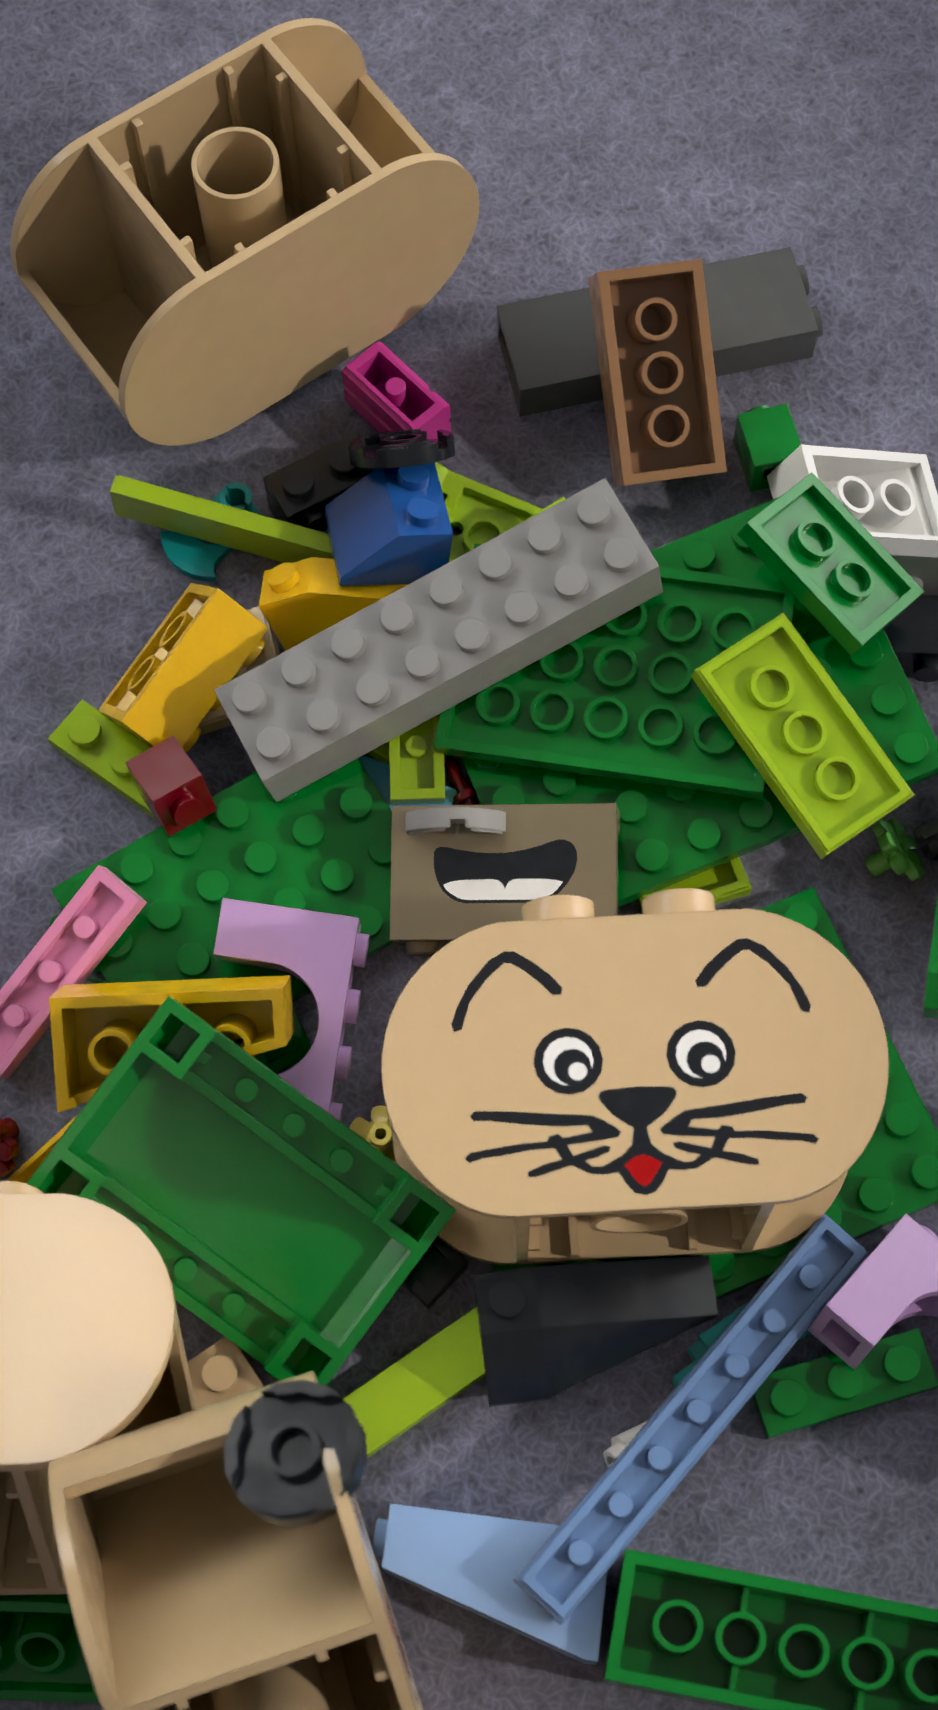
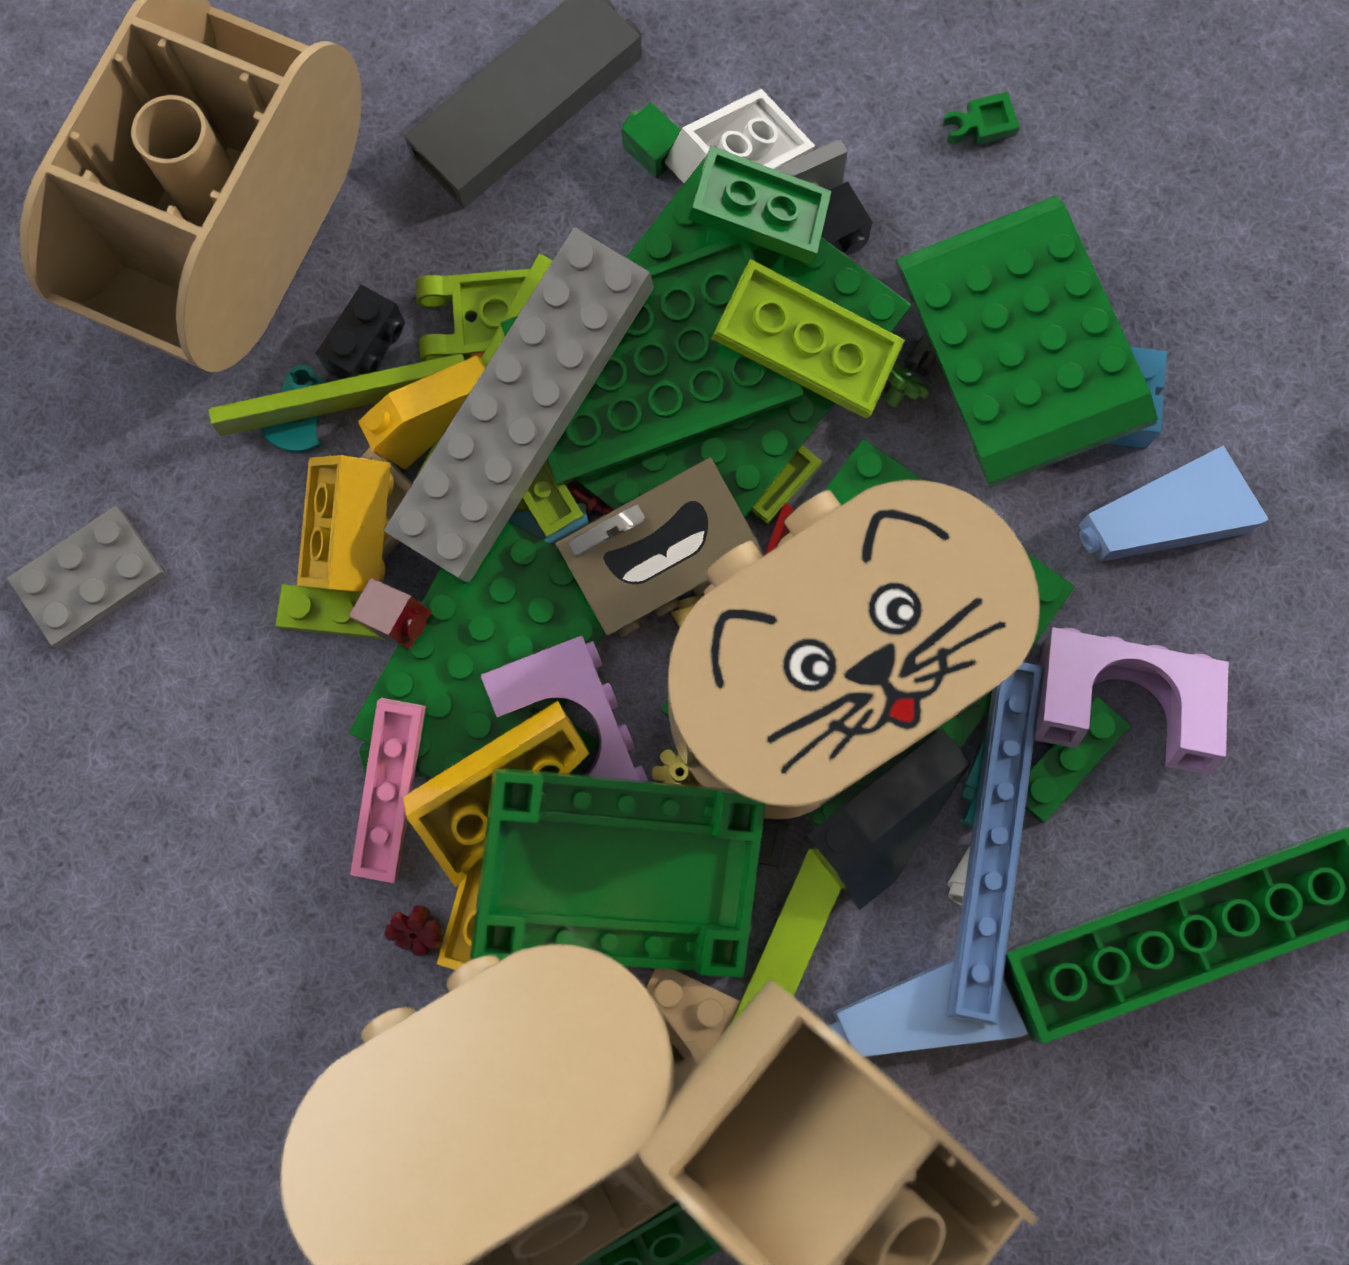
camera: 30 degrees left, 10 degrees up
(278, 1451) = (803, 1061): black tile -> none
(390, 527) = (433, 341): blue slope -> none
(392, 394) = (374, 245): dark pink brick -> none
(401, 449) = (407, 280): black tile -> none
(657, 372) = (552, 127): medium nougat brick -> none

